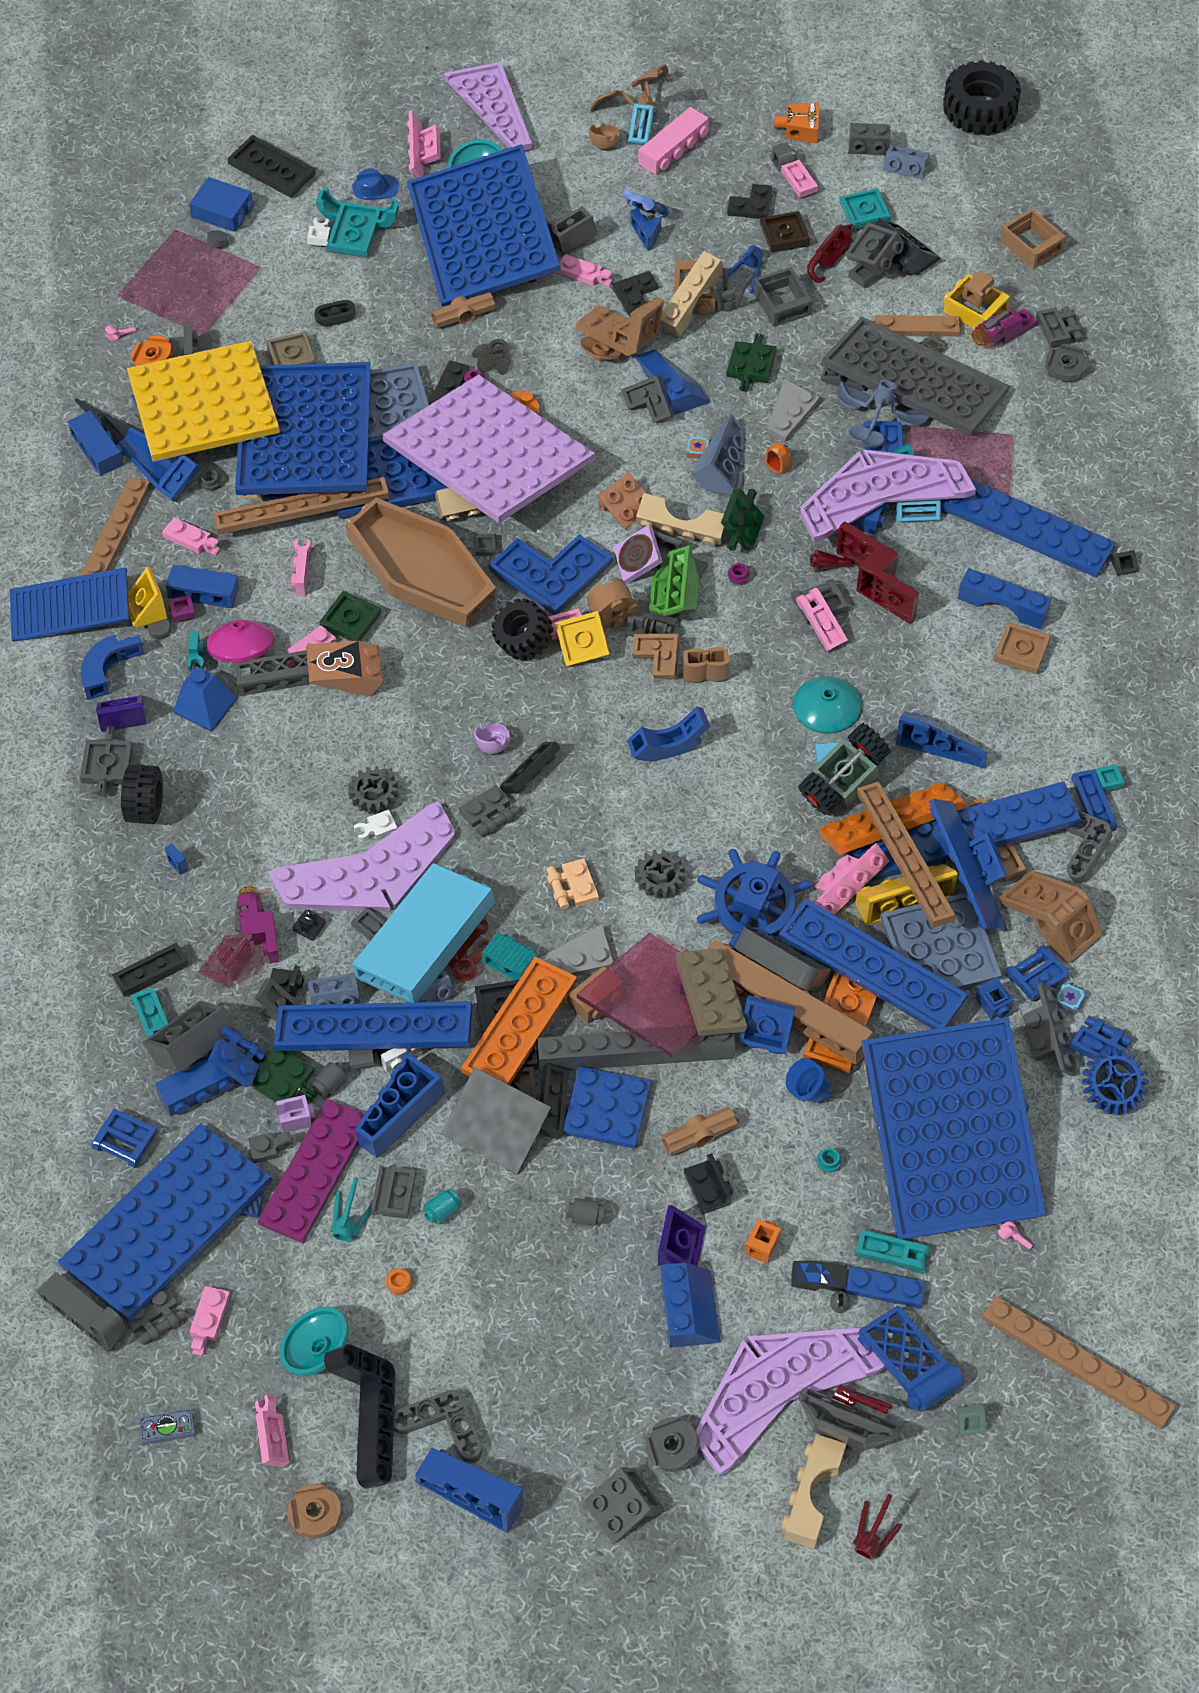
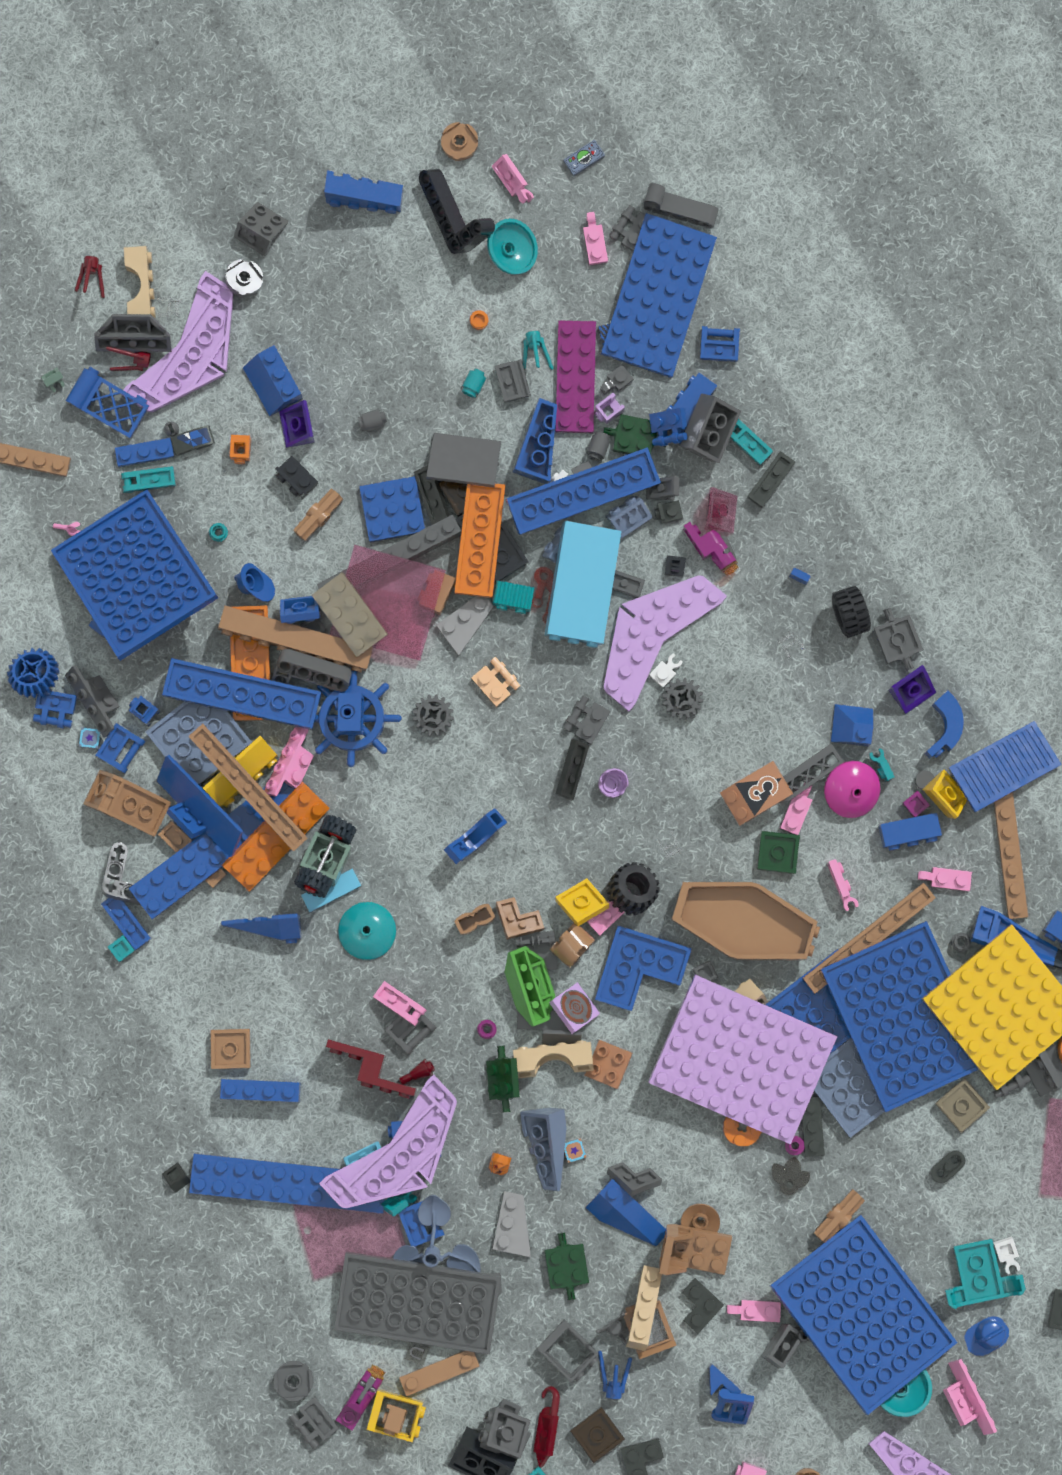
camera: 155 degrees right, 25 degrees up
(449, 1414) = (400, 240): dark grey beam -> none

